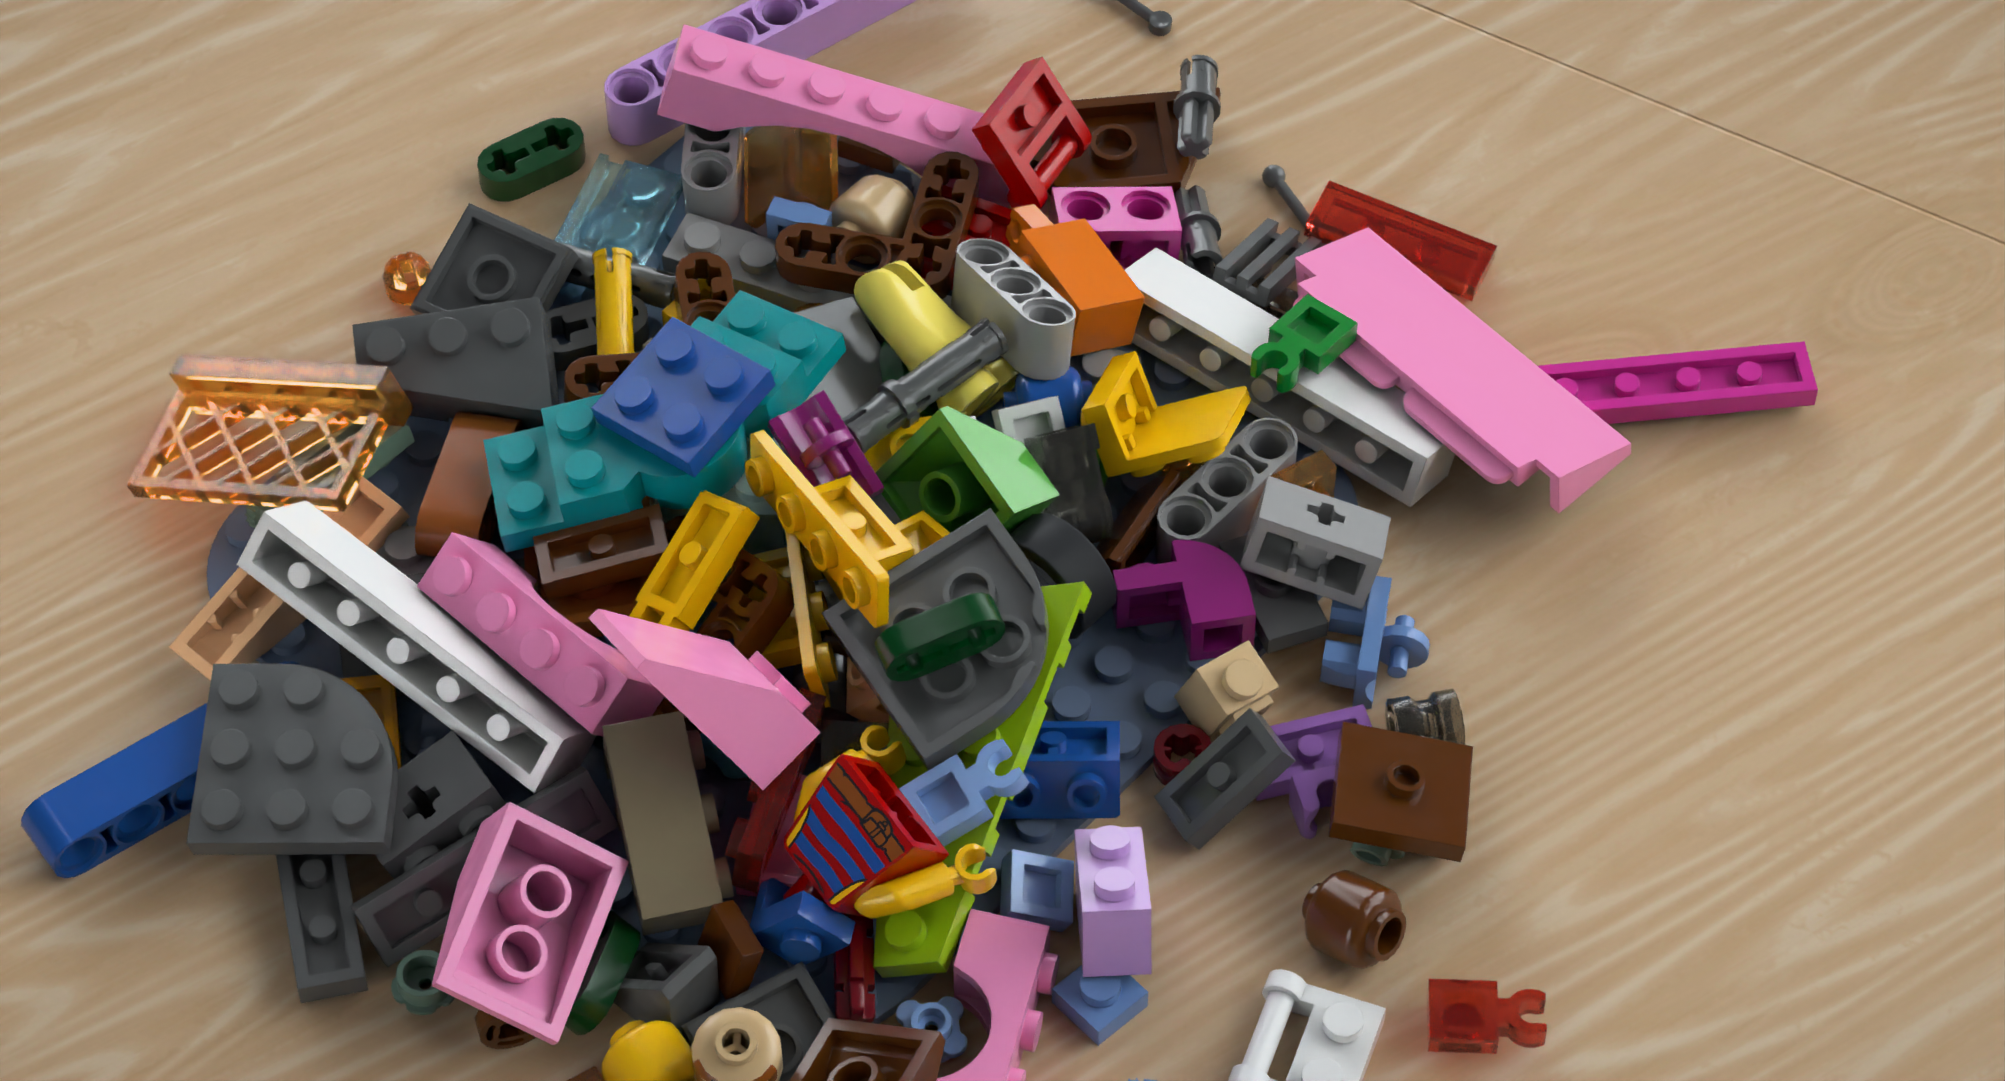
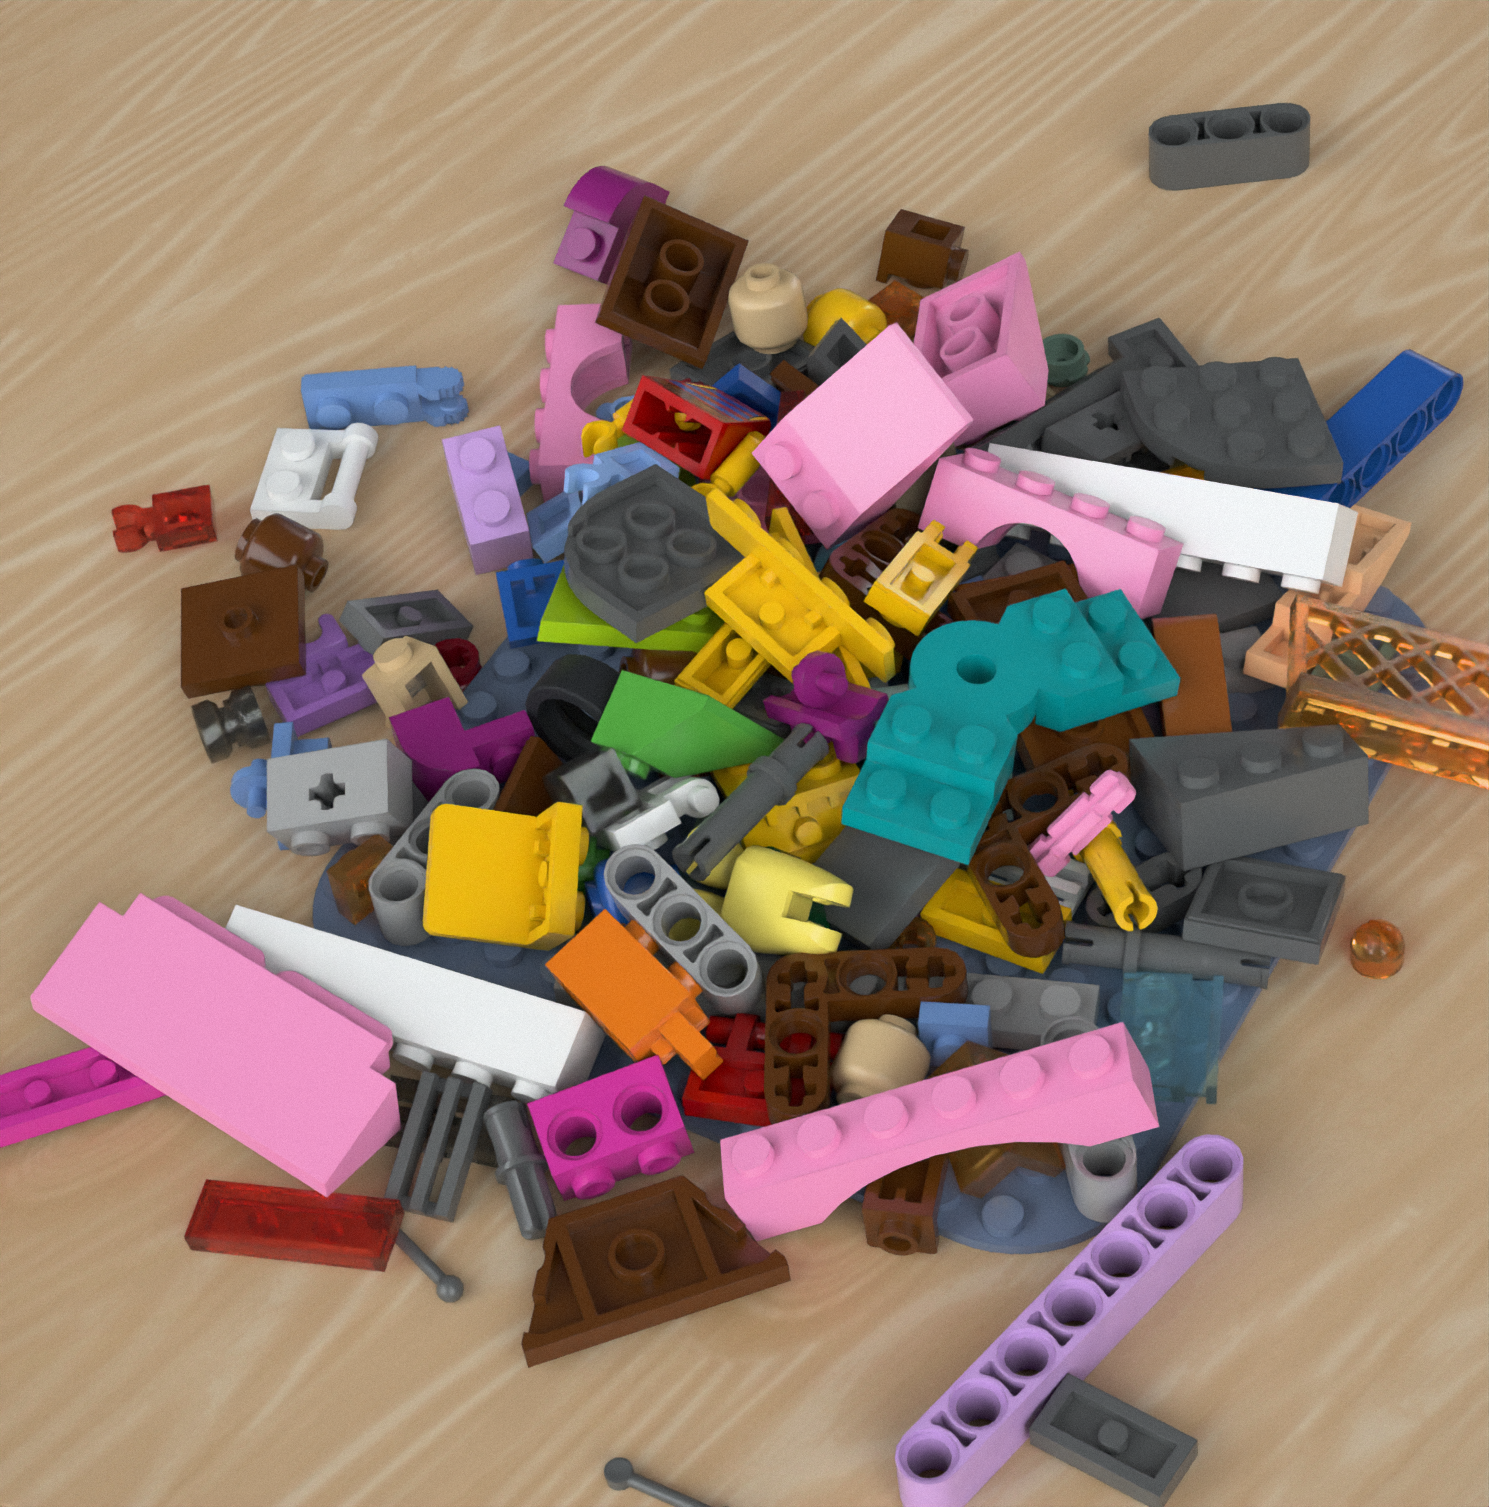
camera: 175 degrees right, 5 degrees down
(531, 159) = (1296, 1103): dark green beam -> none
(617, 329) = (1082, 822): none -> bright pink axle
(683, 396) = (973, 671): blue plate -> none
(939, 637) = (653, 505): dark green beam -> none
(1020, 125) = (717, 1148): red plate -> none
(1197, 106) = (539, 1283): dark grey axle -> none
(1304, 336) = (371, 975): green plate -> none

